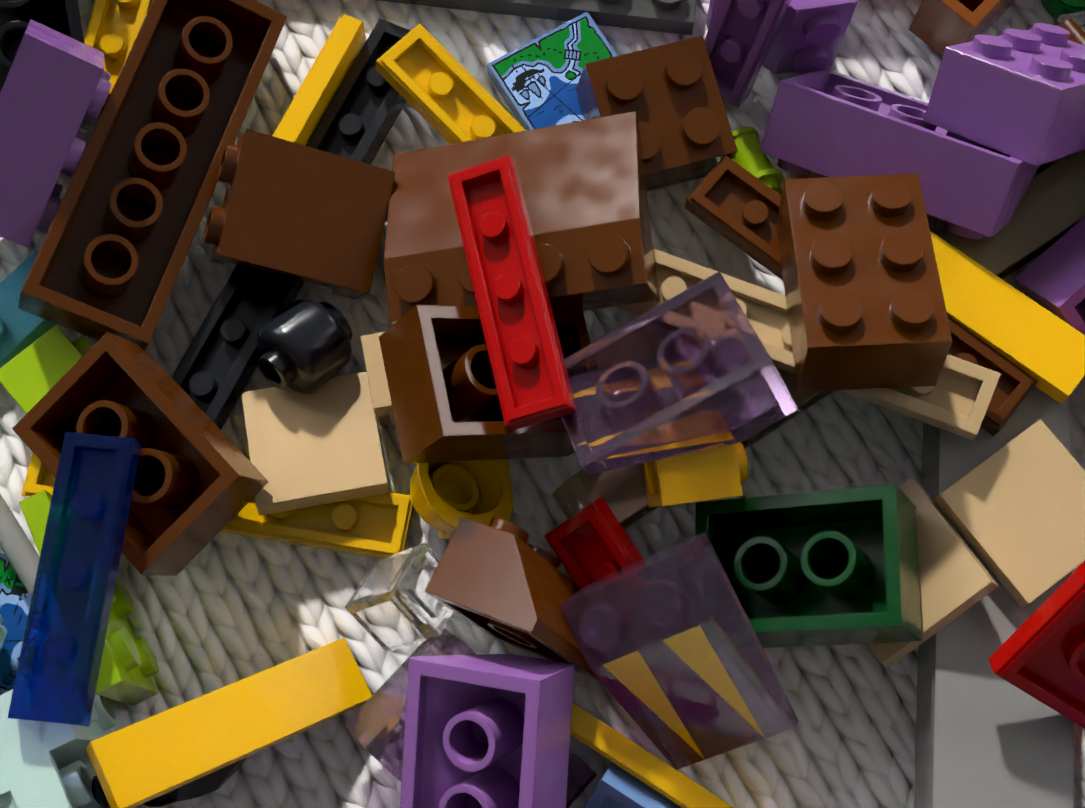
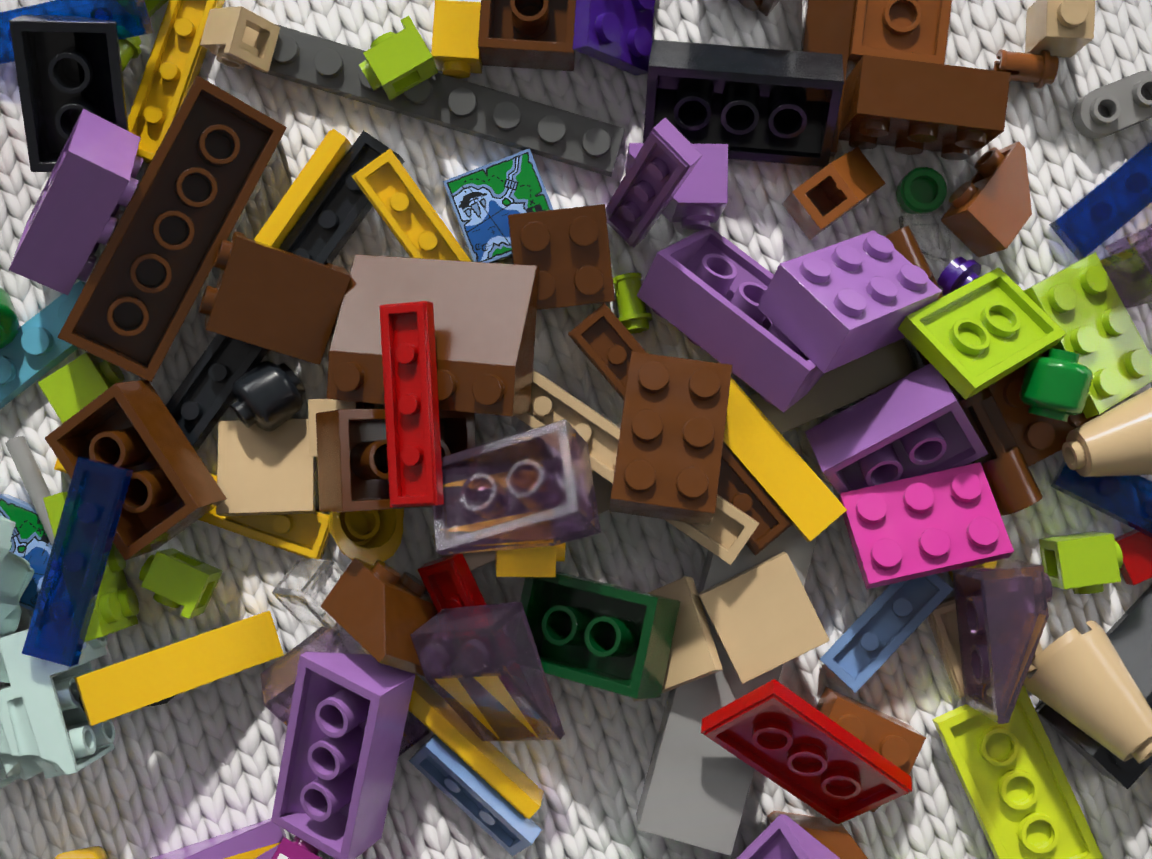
camera: 10 degrees right, 15 degrees up
(213, 613) = (180, 581): none -> lime brick

